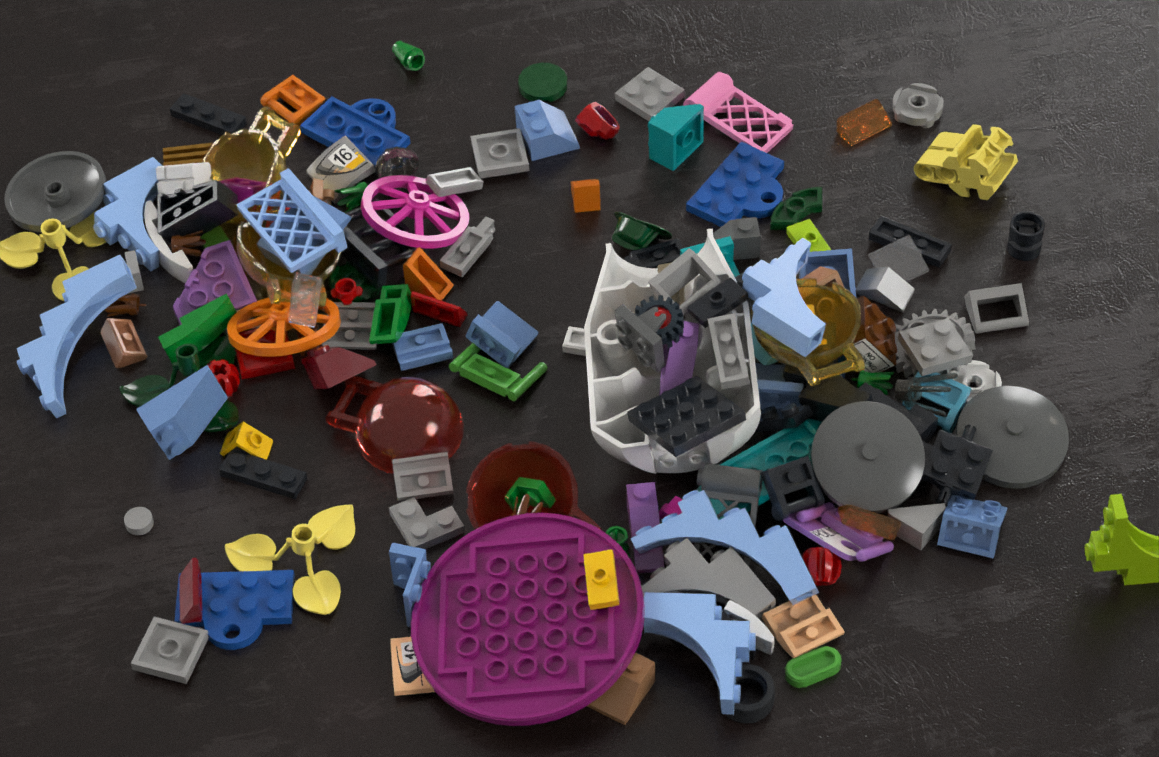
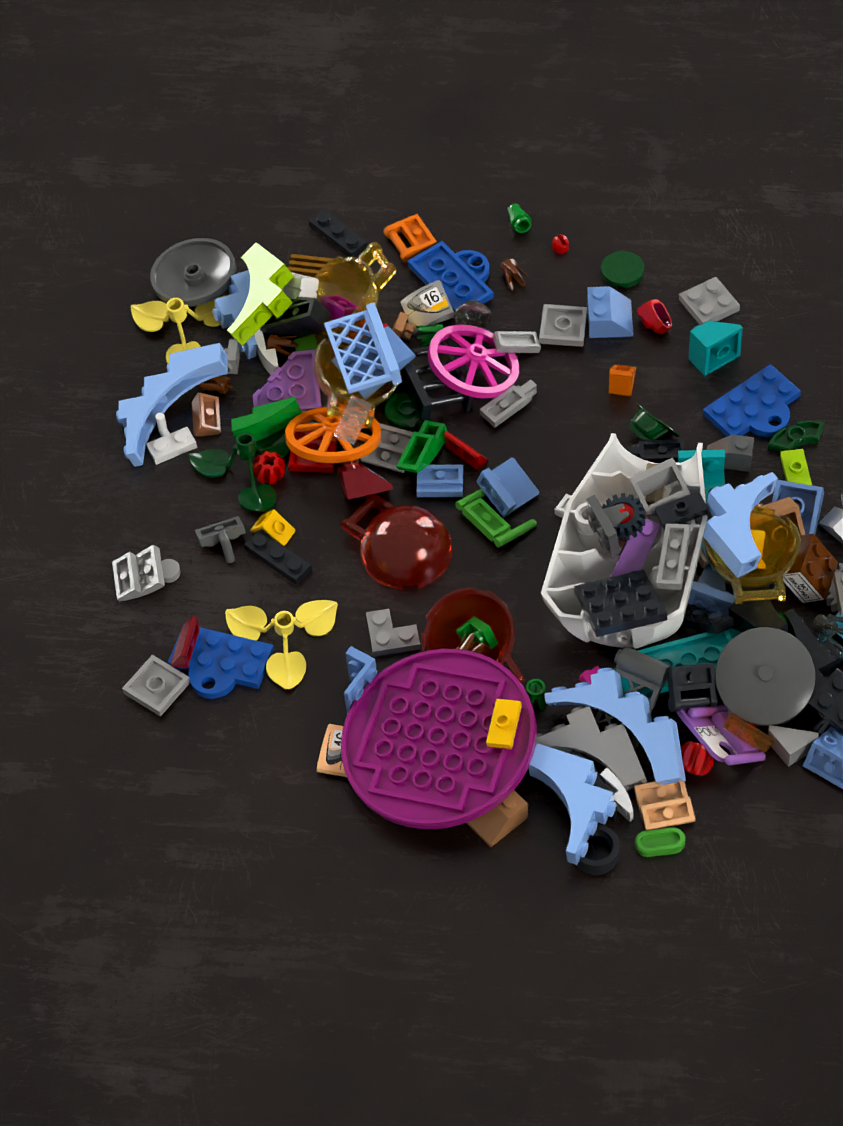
camera: 20 degrees right, 5 degrees up
(90, 383) = (170, 444): none -> white plate
(104, 533) = (138, 573): none -> light grey slope
(155, 190) = (265, 294): none -> arch
(183, 411) = (228, 489): medium blue slope -> none
(190, 460) = (221, 532): none -> dark grey plate
(346, 291) = (394, 412): red plate -> none
(418, 109) = (510, 268): none -> reddish brown piece
(422, 476) = (401, 593): light grey plate -> none
(425, 277) = (463, 421): orange slope -> none
(464, 72) = (557, 245): none -> red hinge
(643, 512) = (566, 674): medium lavender slope -> none
(718, 92) = (765, 315): bright pink piece -> none
(875, 380) = (803, 607): green piece -> none

